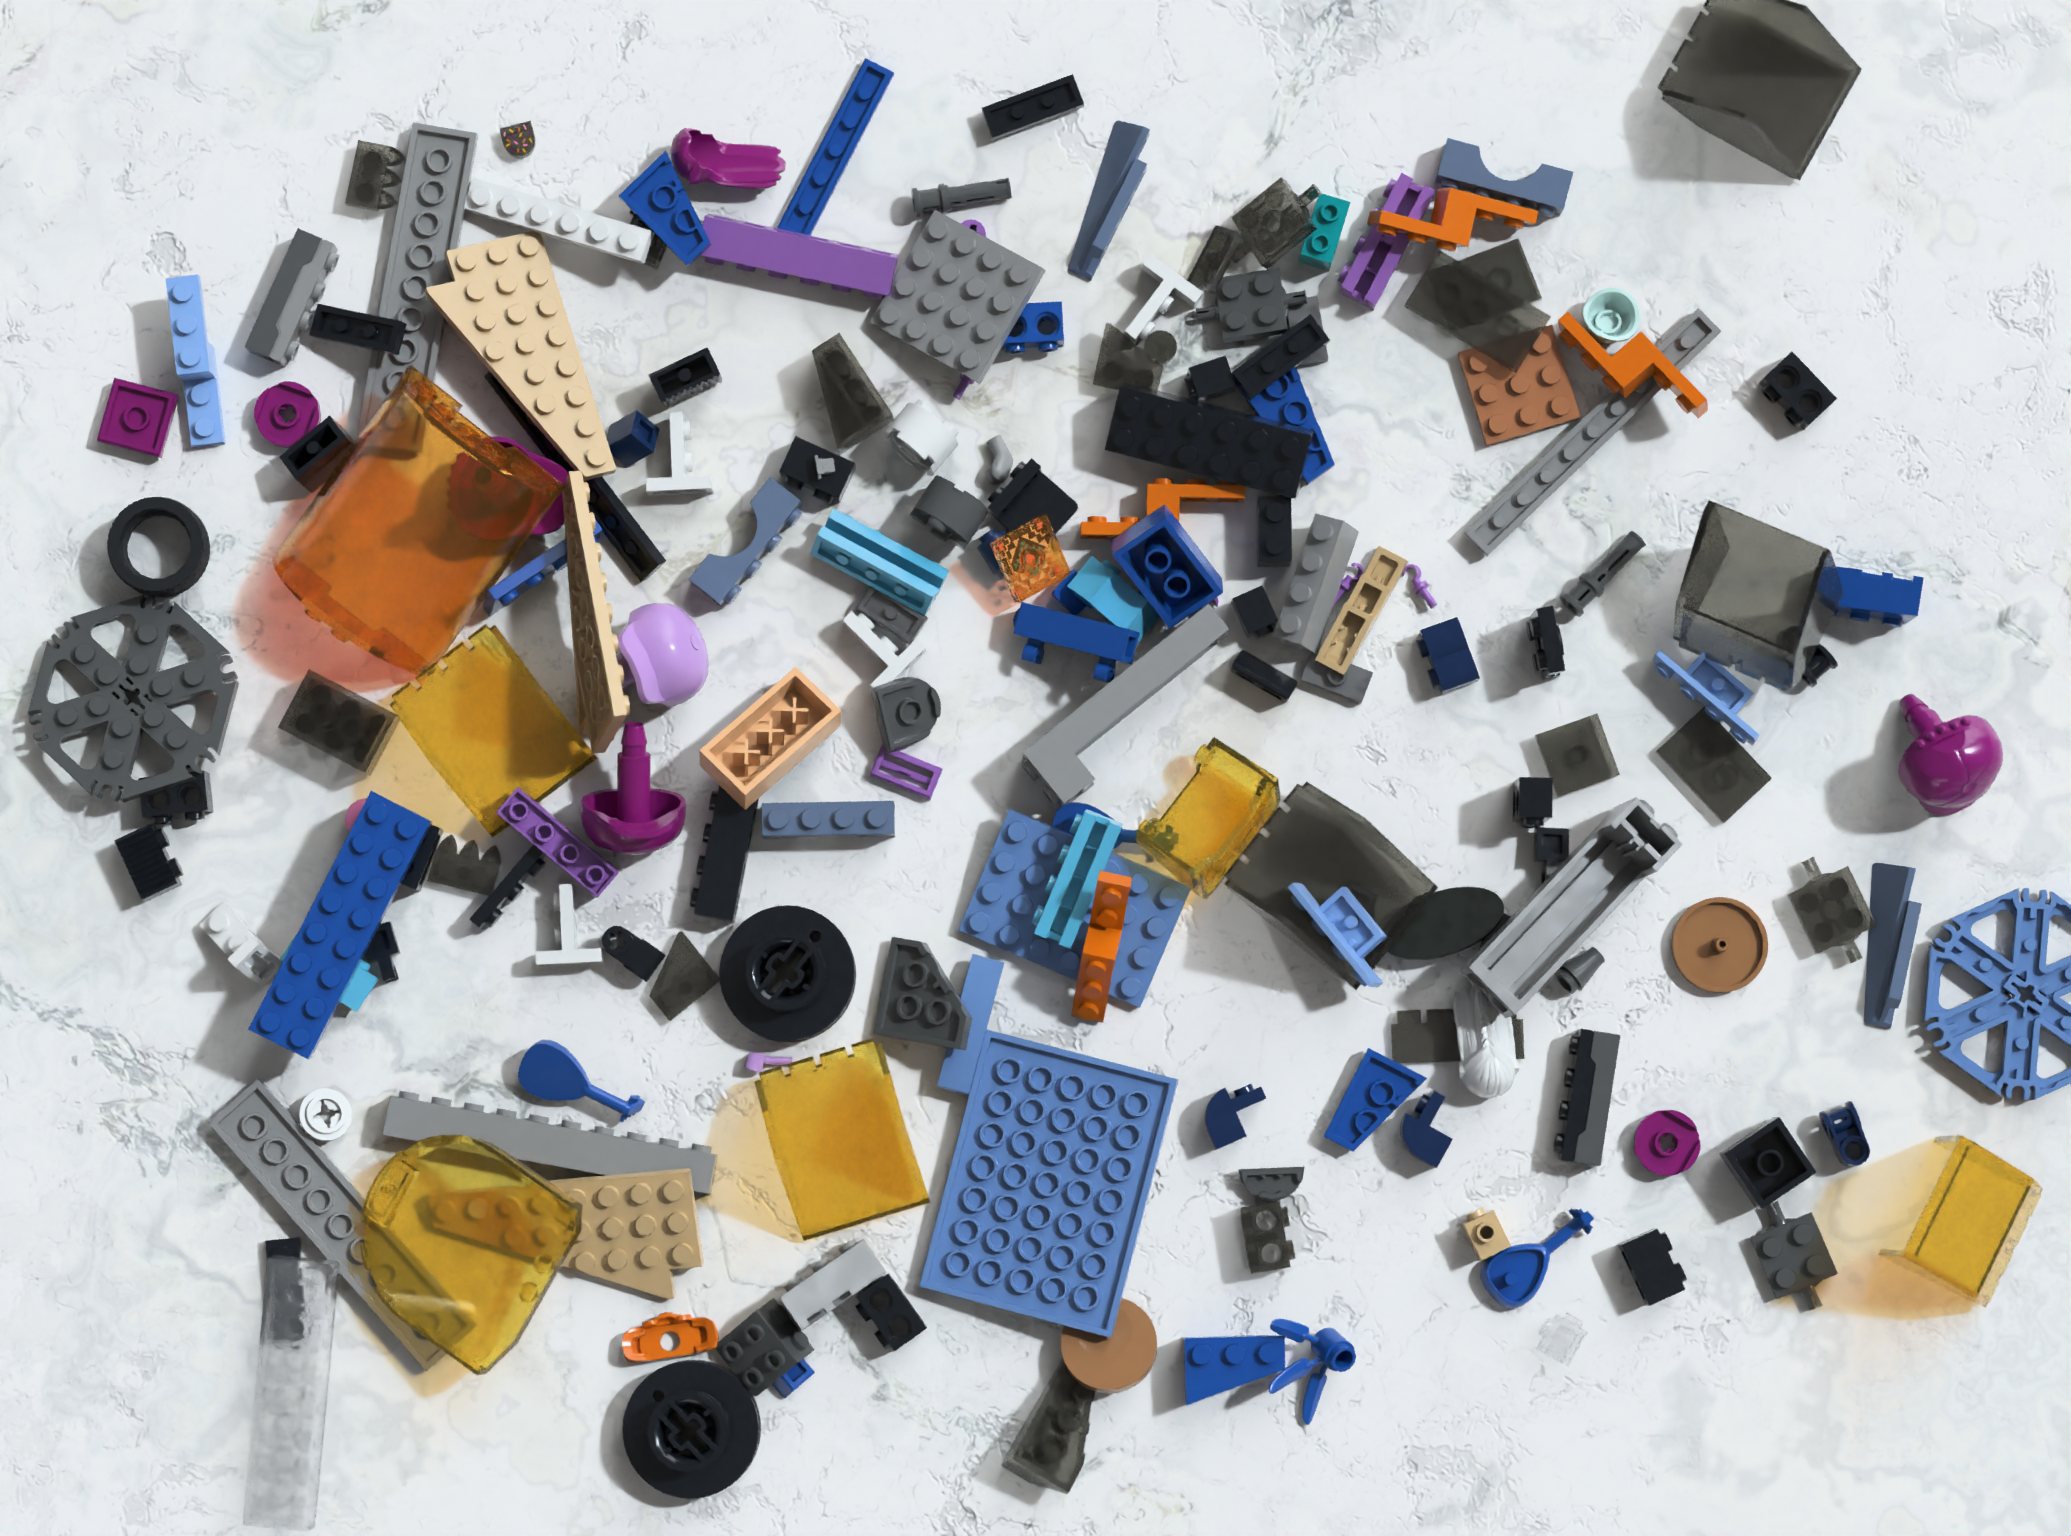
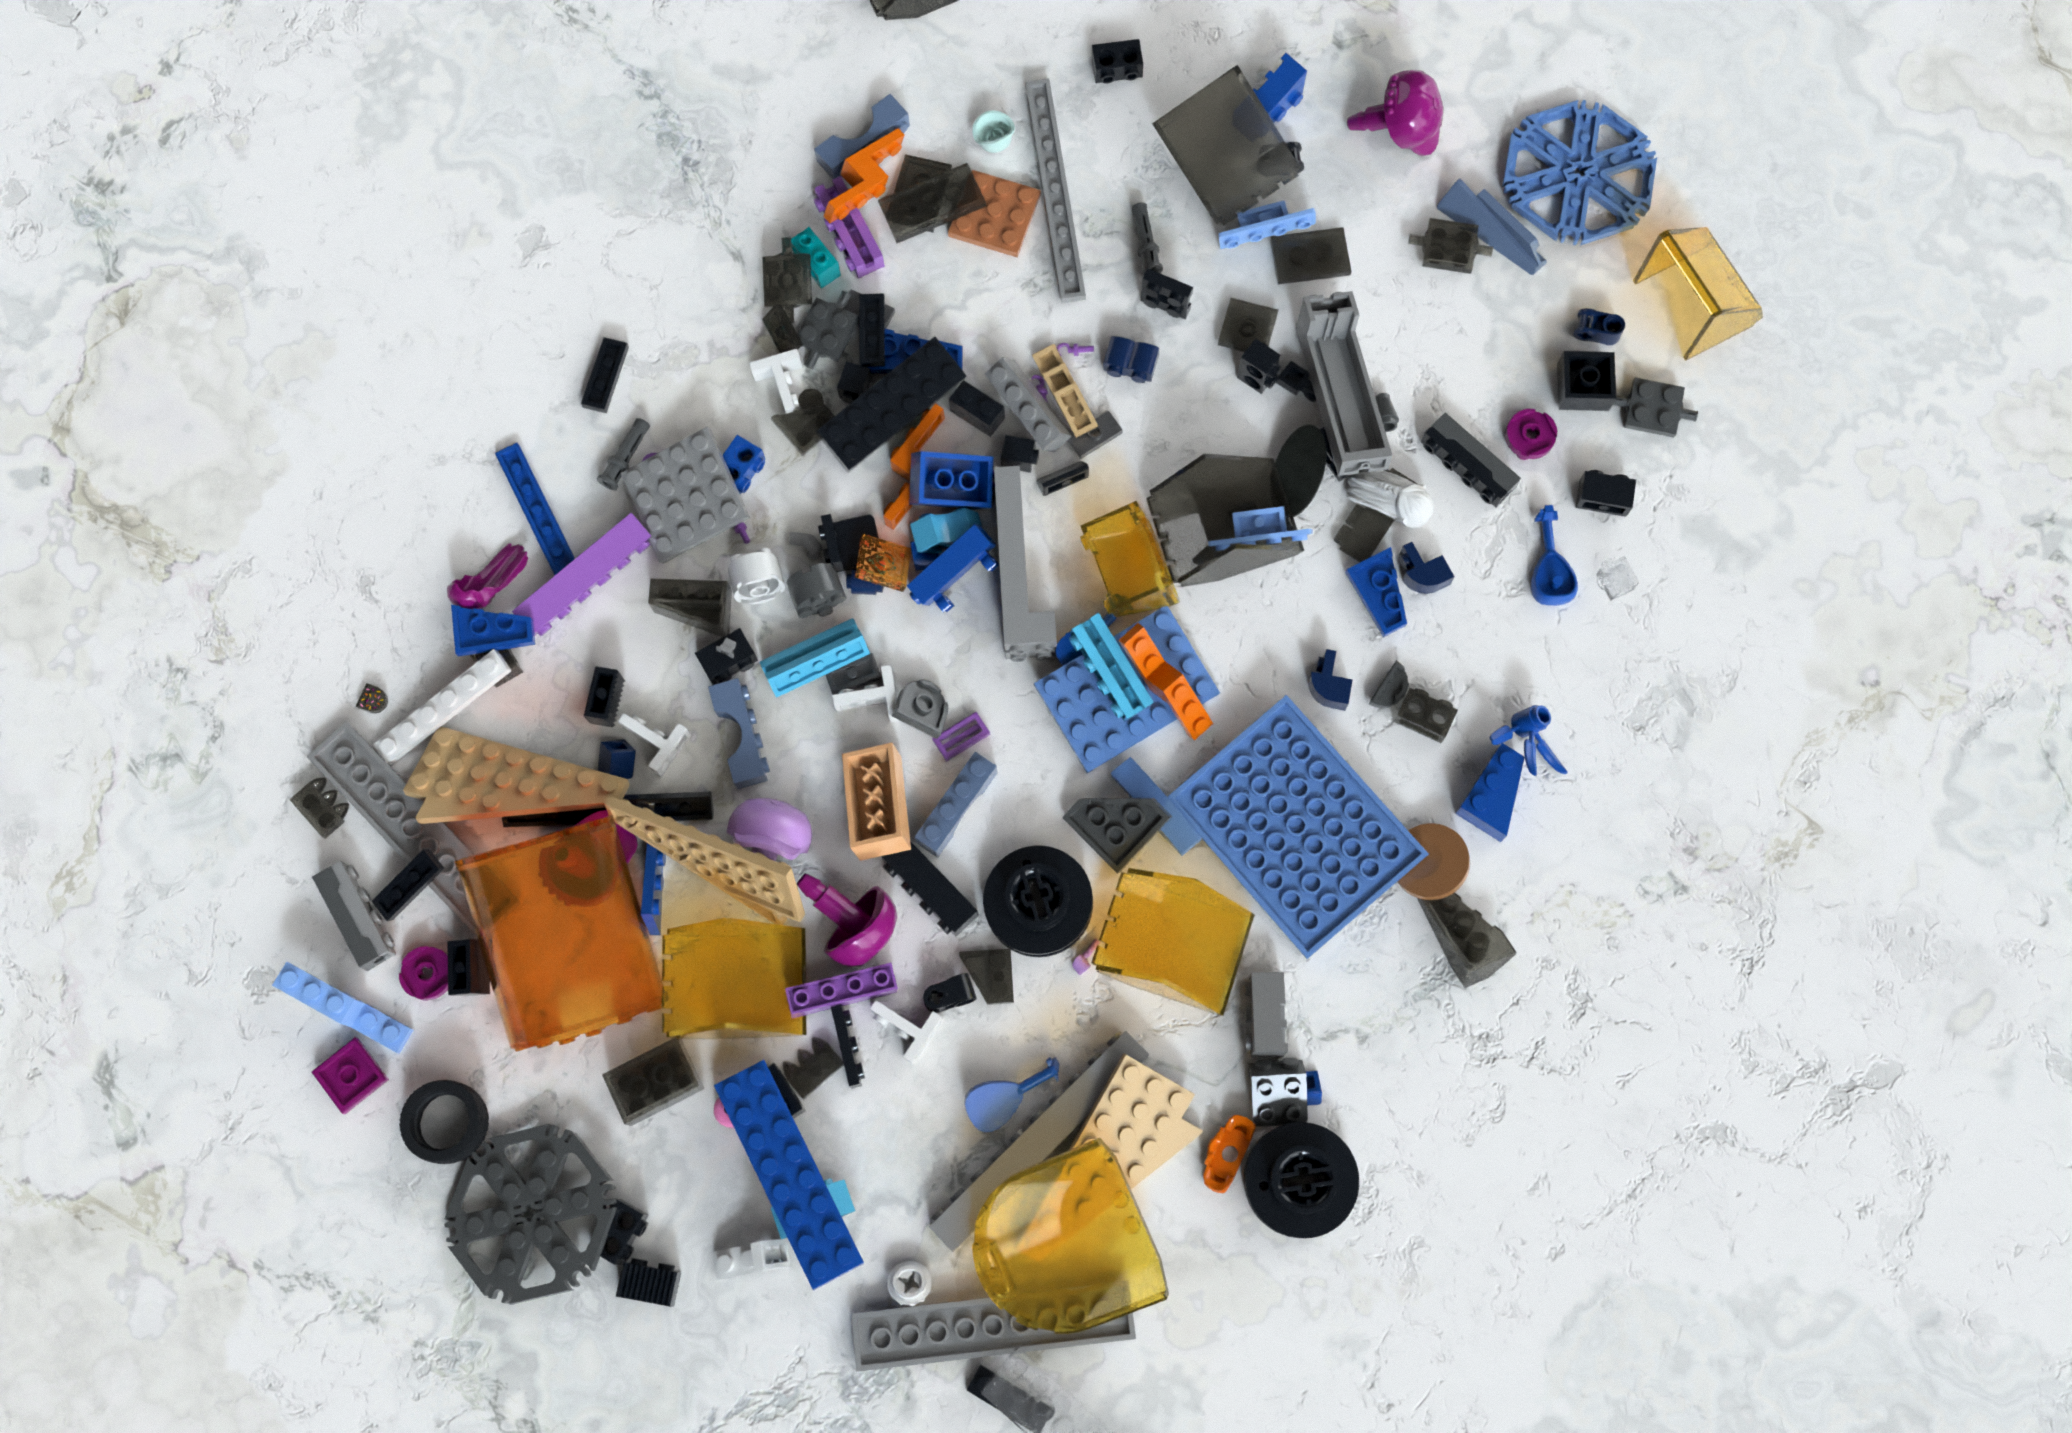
camera: 50 degrees left, 10 degrees down
(381, 949) = (826, 1162): black plate -> none
(897, 1308) = (1311, 982): black brick -> none
(1111, 196) = (695, 366): sand blue wedge -> none
(1485, 1233) = (1516, 578): tan brick -> none
(1632, 366) = (1032, 135): orange bracket -> none
(1719, 945) = (1426, 324): medium nougat piece -> none

